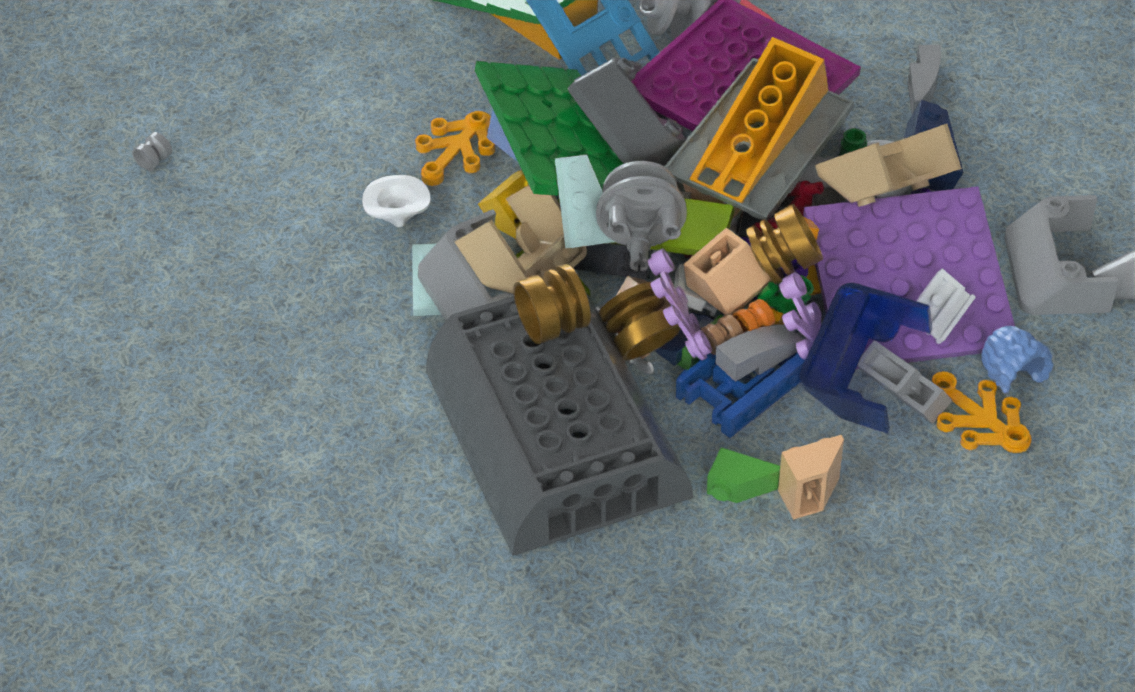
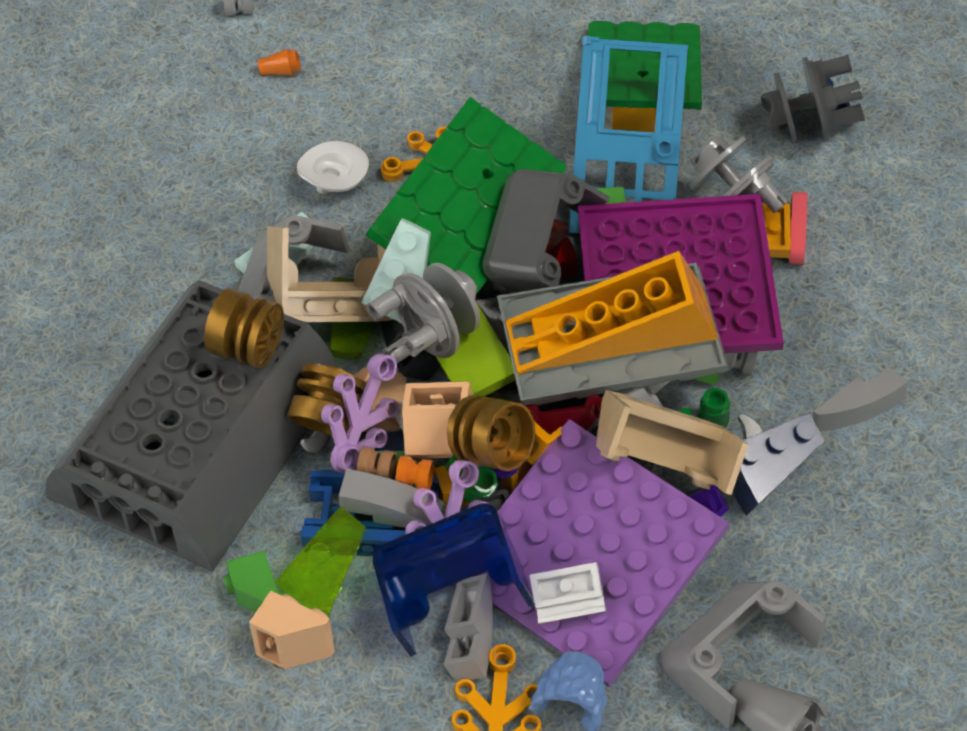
camera: 50 degrees right, 5 degrees up
(249, 166) = (281, 63): none -> orange cone
(765, 418) = (322, 565): none -> clear neon green wing

